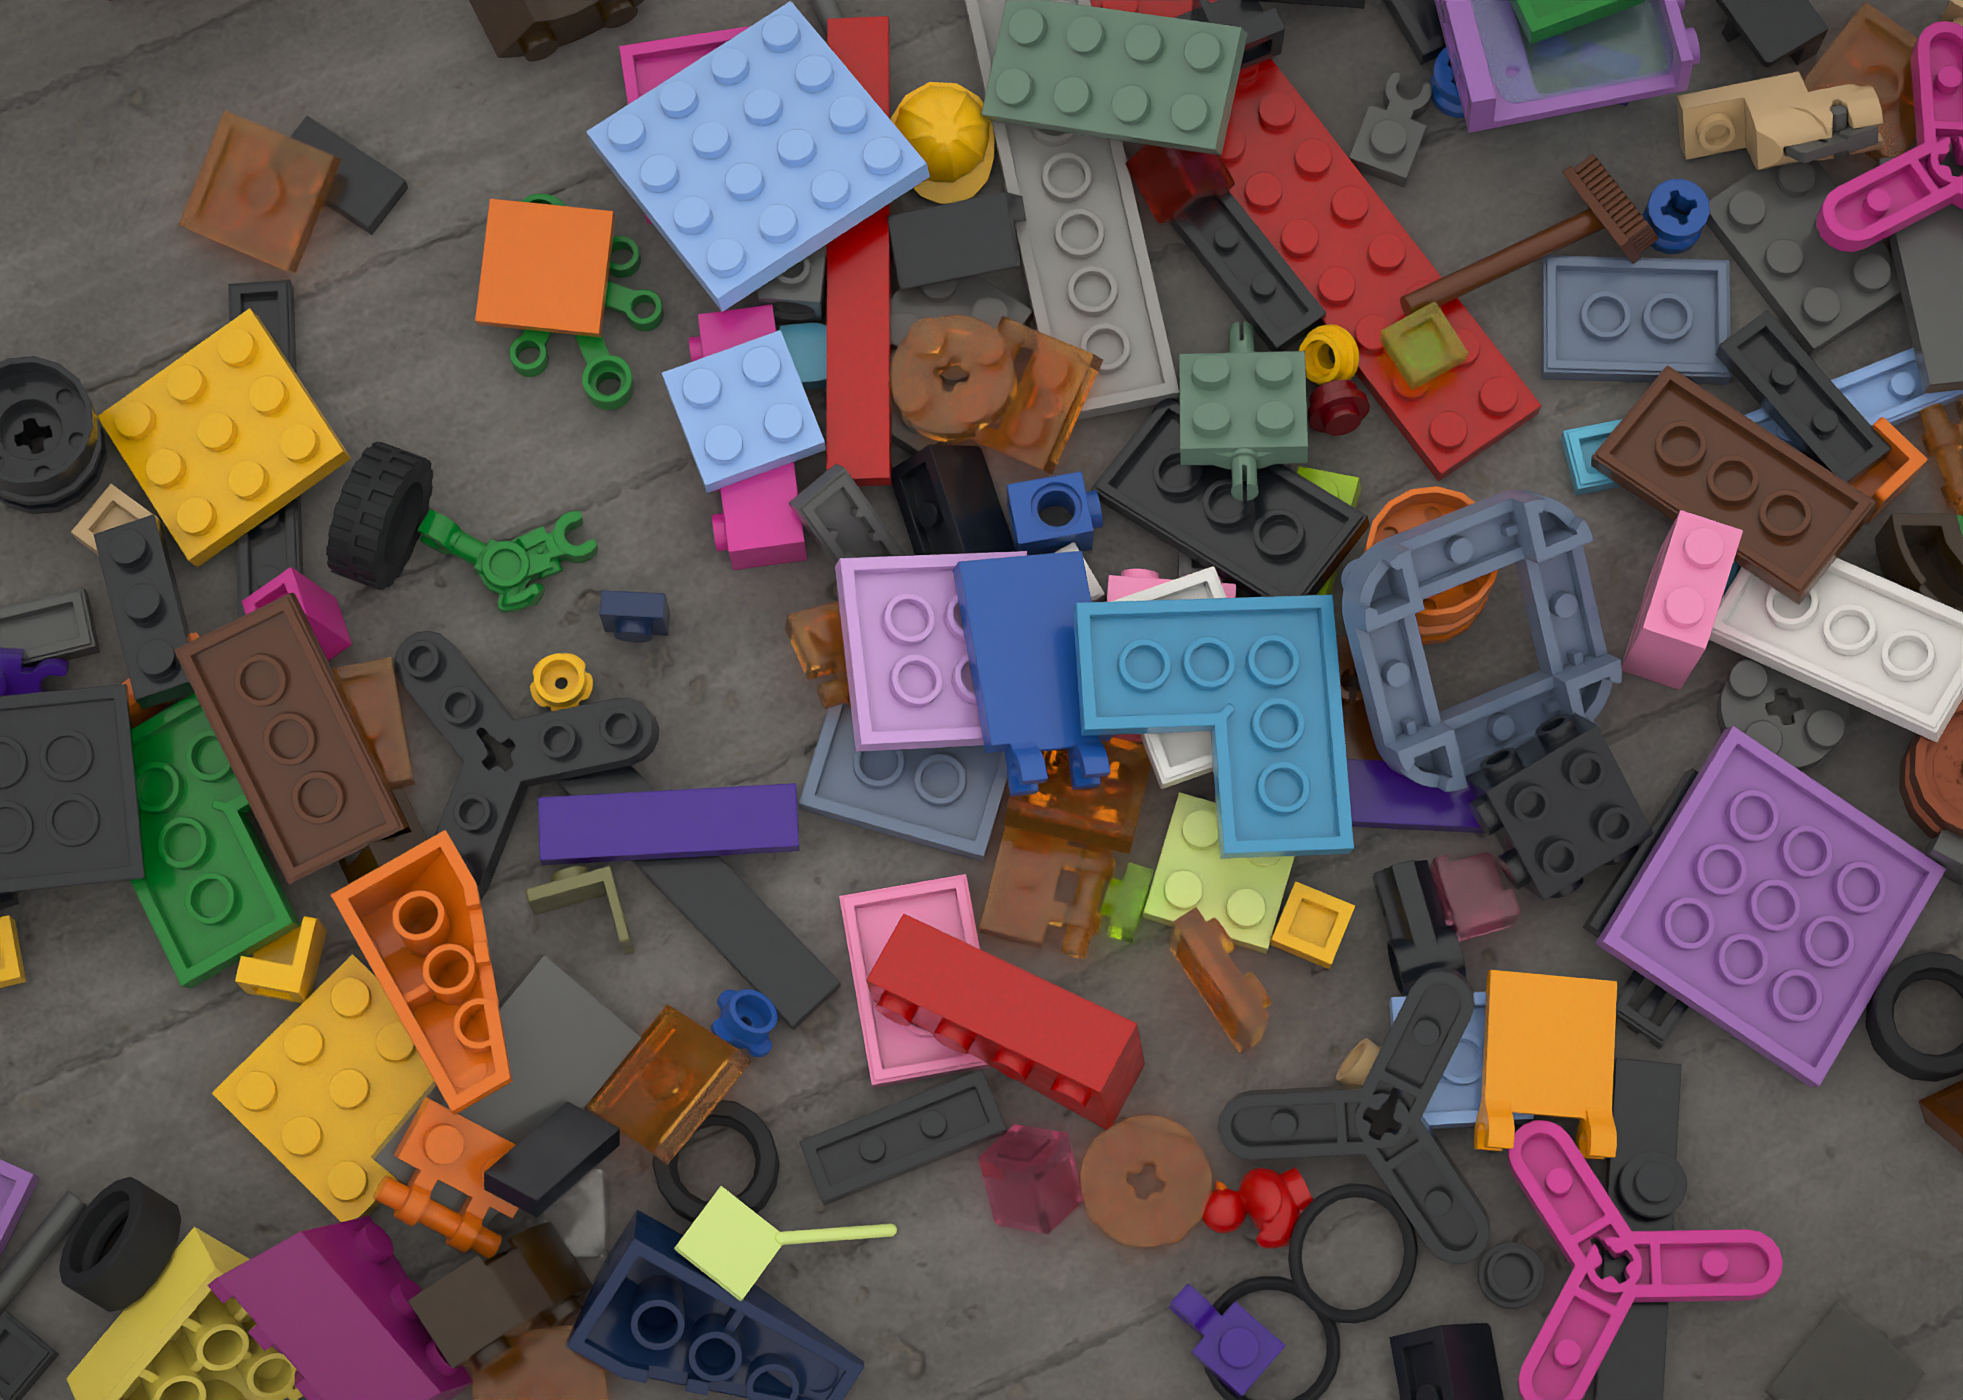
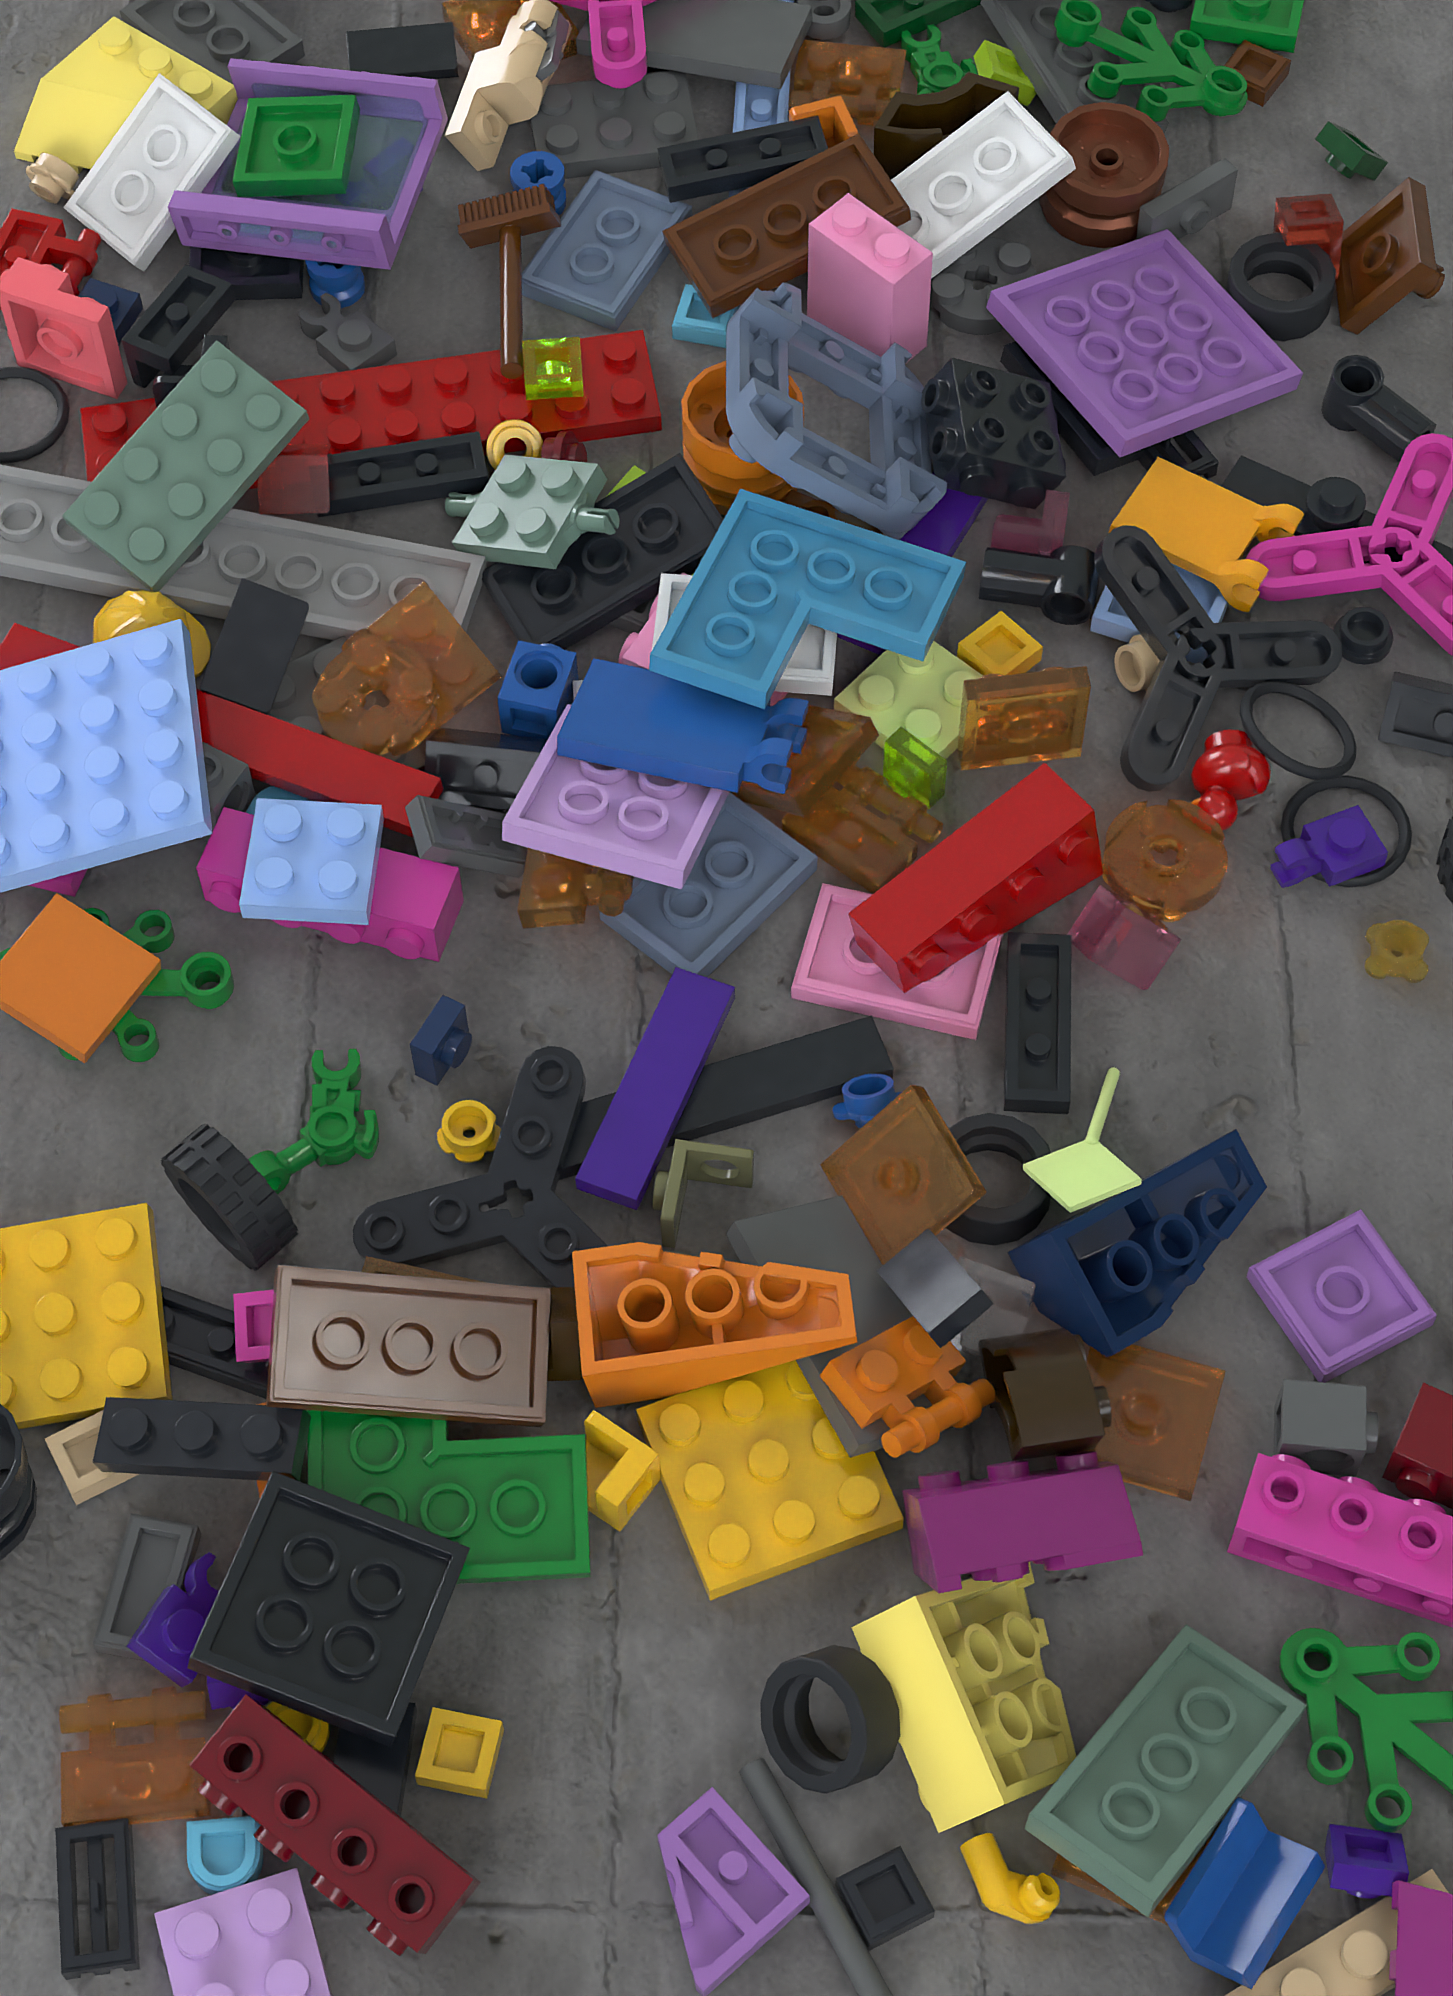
camera: 65 degrees left, 15 degrees down
(1805, 1188) = (1362, 402): none -> black piece

